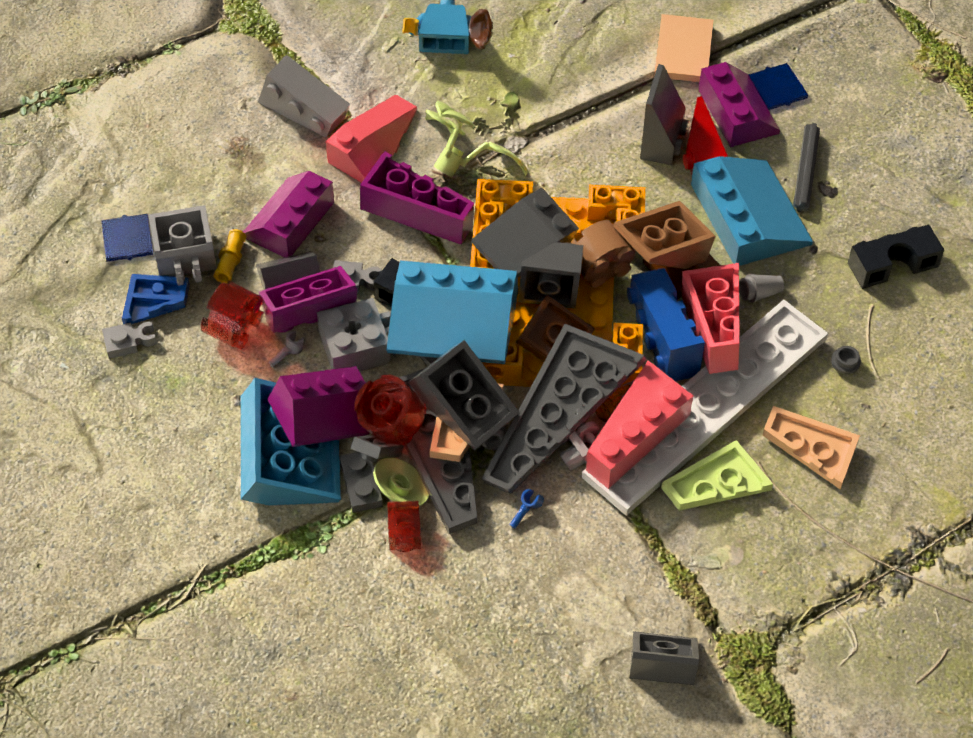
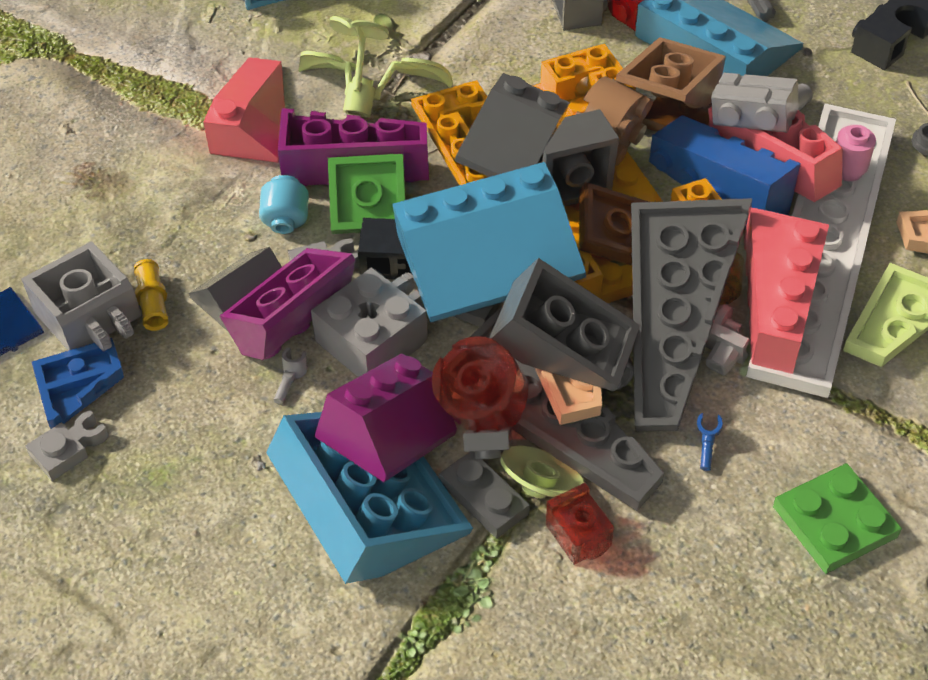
camera: 25 degrees left, 5 degrees down
(232, 314) = (200, 356): clear red brick -> none
(291, 213) = (200, 219): magenta slope -> none
(302, 98) = (142, 91): light grey wedge -> none
(350, 224) = (283, 203): none -> medium azure head
(407, 236) = (364, 189): none -> bright green plate
(573, 594) = (836, 518): none -> bright green plate
(705, 282) = (755, 102): none -> light grey brick
(762, 347) = (857, 150): none -> bright pink brick

